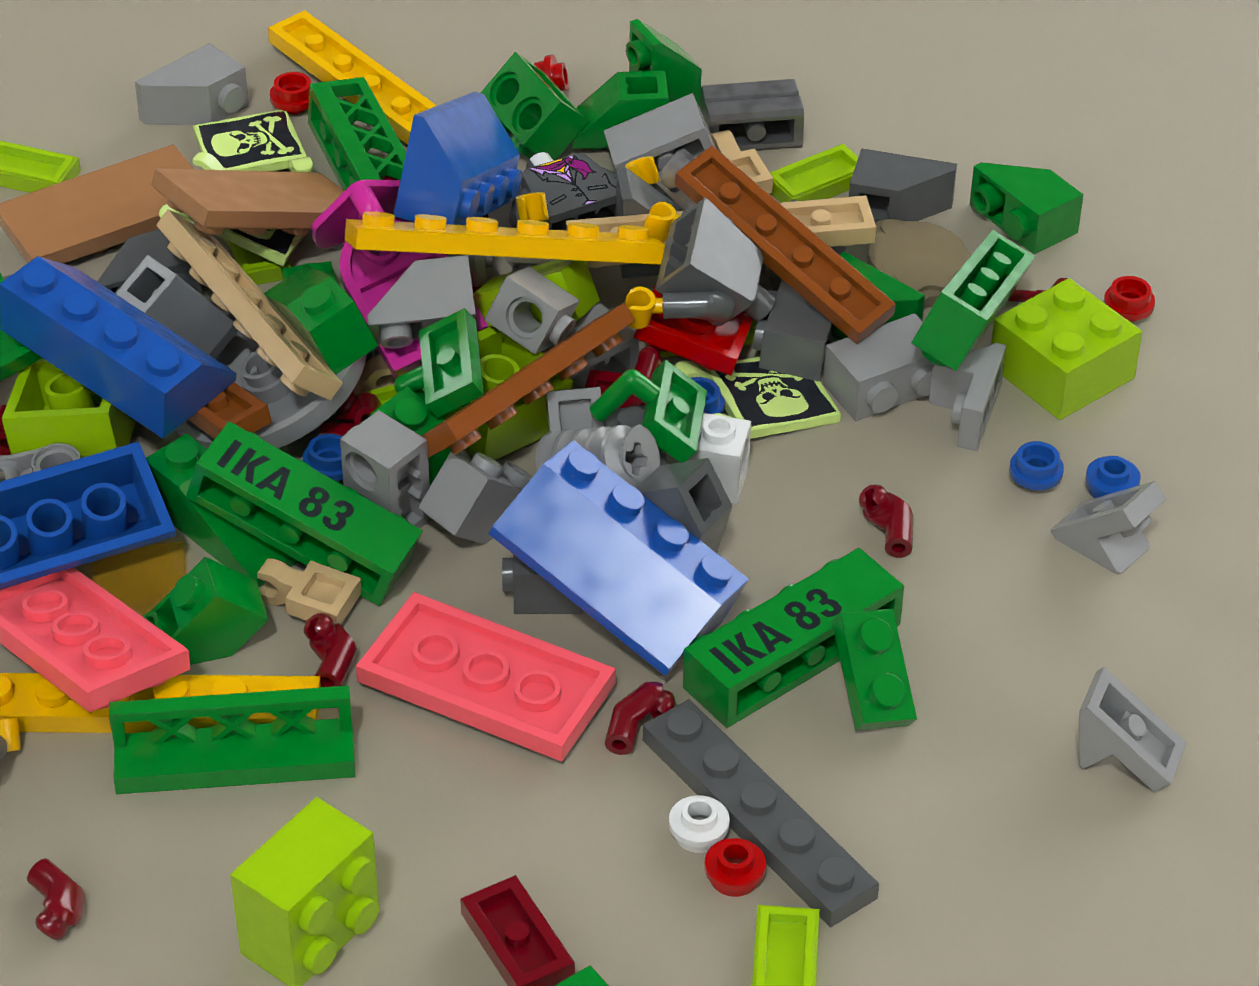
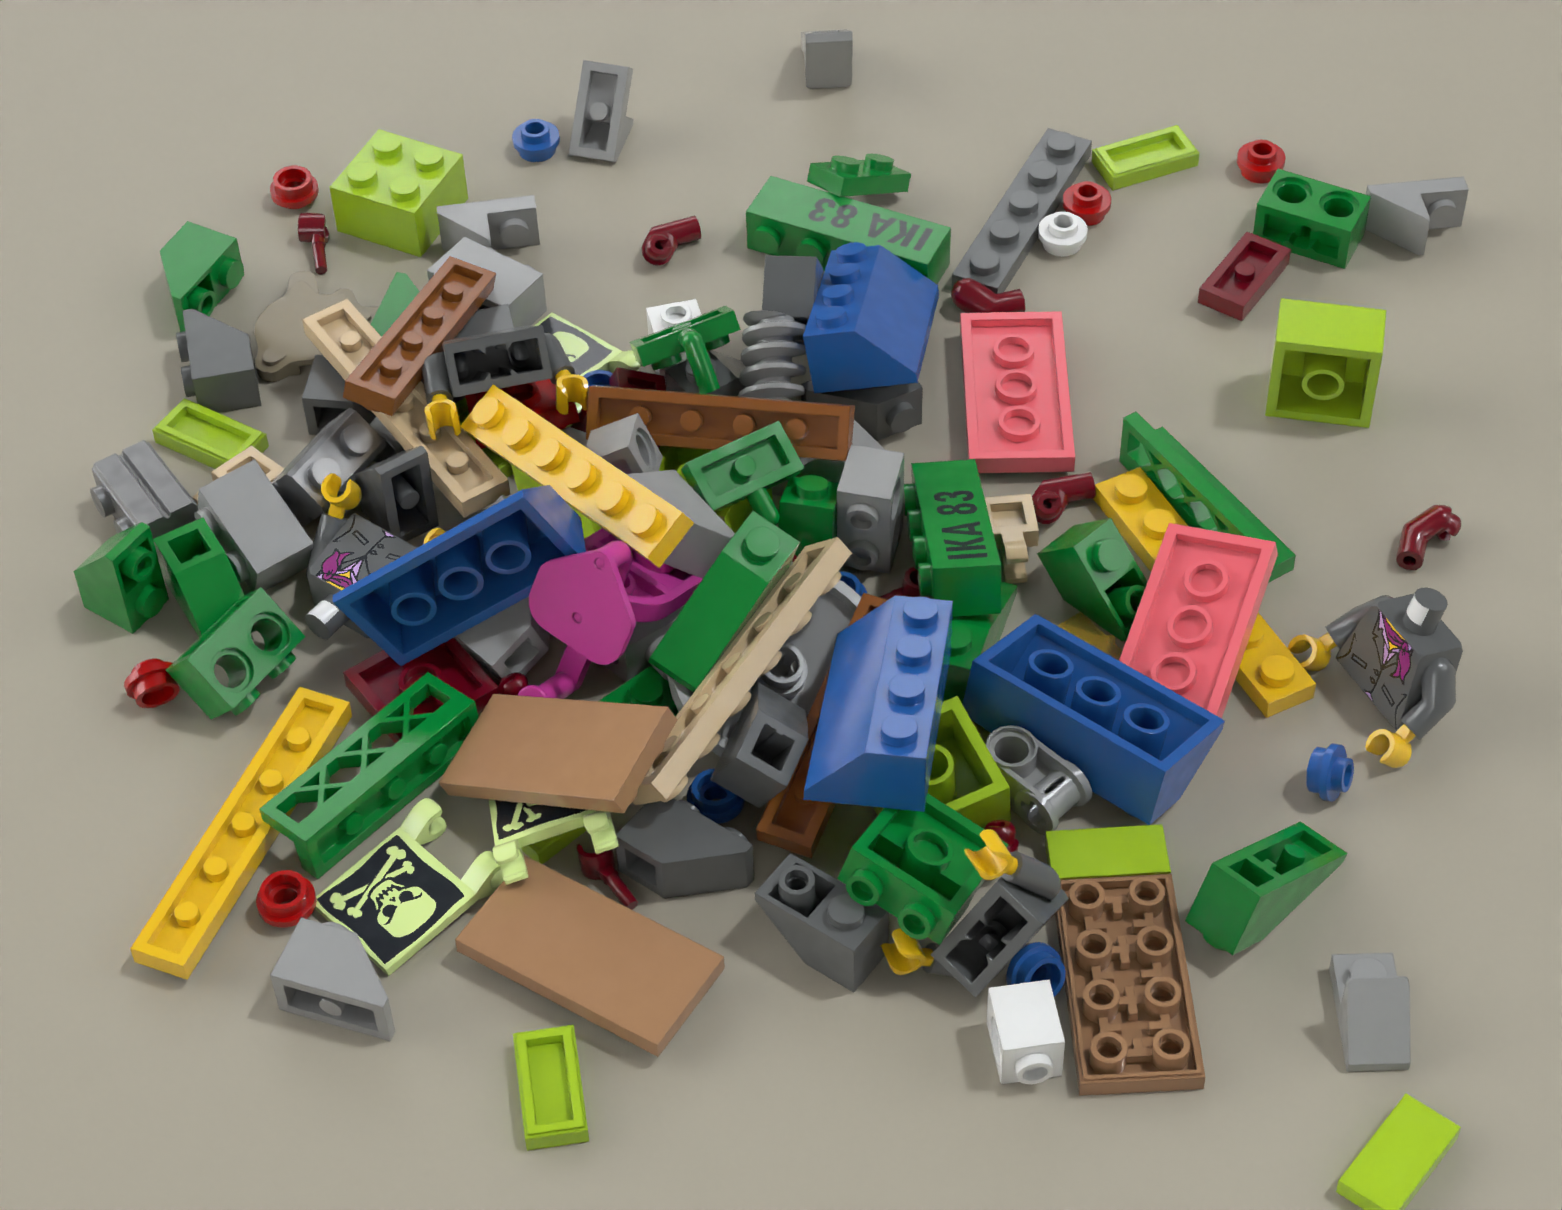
camera: 115 degrees left, 5 degrees up
(972, 301) = (408, 219): green brick -> none
(1036, 466) = (550, 179): blue plate -> none

